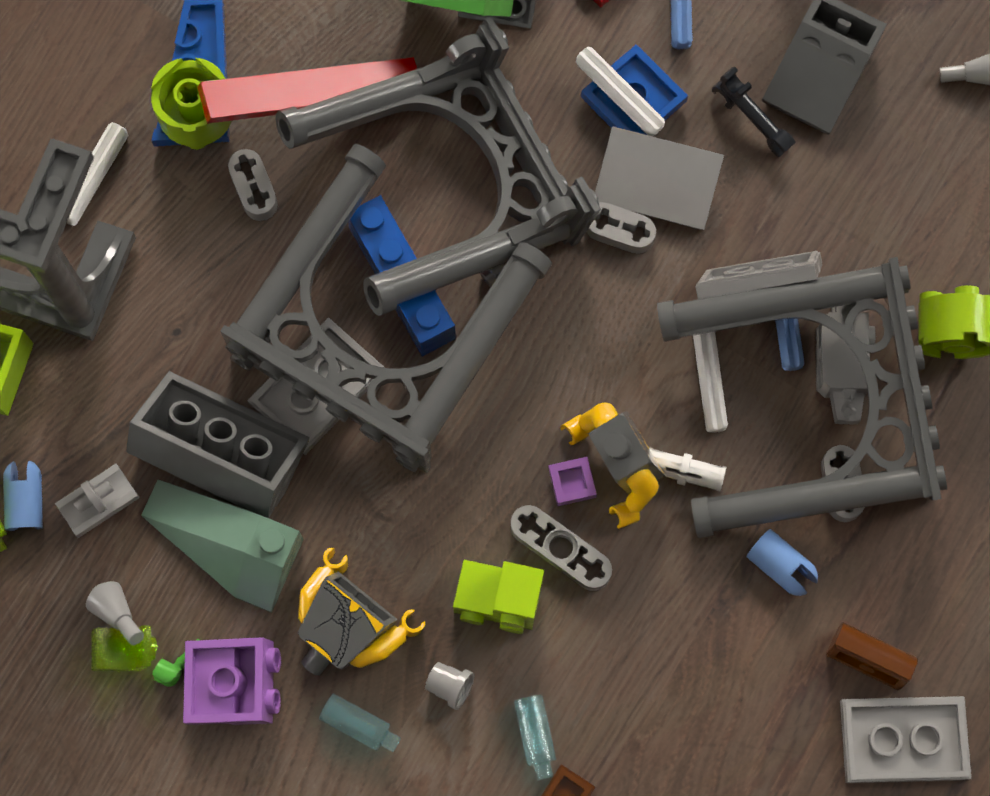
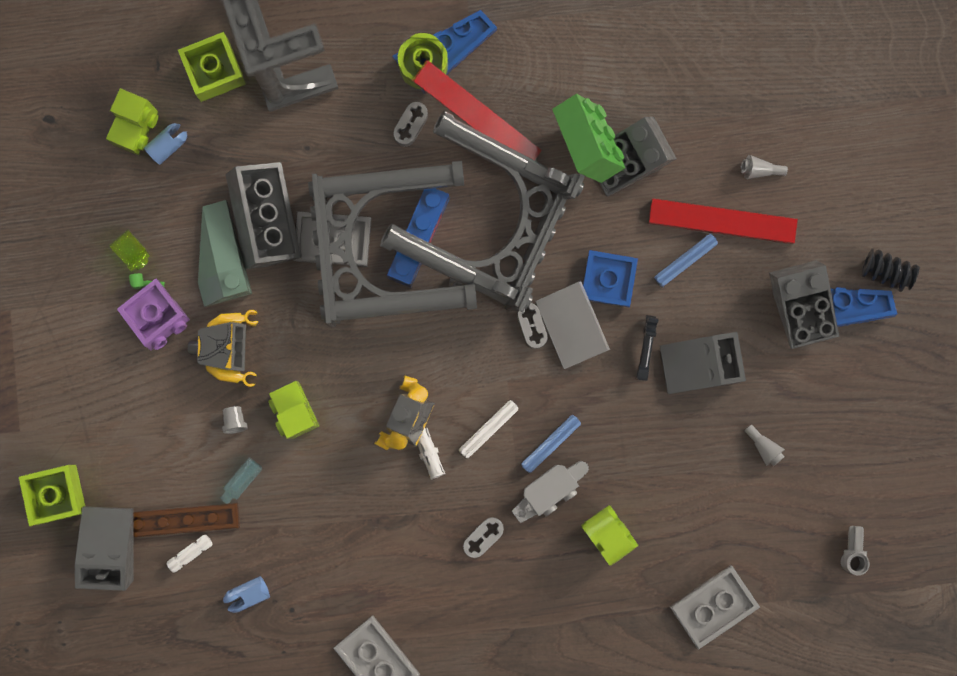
camera: 50 degrees right, 10 degrees up
(97, 500) = (190, 180): light grey hips -> none
(104, 156) = (355, 40): white axle -> none
(110, 605) = (145, 229): light grey cone -> none
(358, 724) = (181, 391): clear light blue cylinder -> none
(572, 481) = (379, 402): medium lavender plate -> none
(590, 558) = (348, 440): light grey beam -> none
(620, 91) = (602, 270): white axle -> none
(759, 274) = (554, 417): light grey tile -> none
(780, 561) = (418, 535): medium blue piece -> none
(835, 490) = (552, 450): dark grey arch -> none
(872, 656) = (405, 615): reddish brown brick -> none

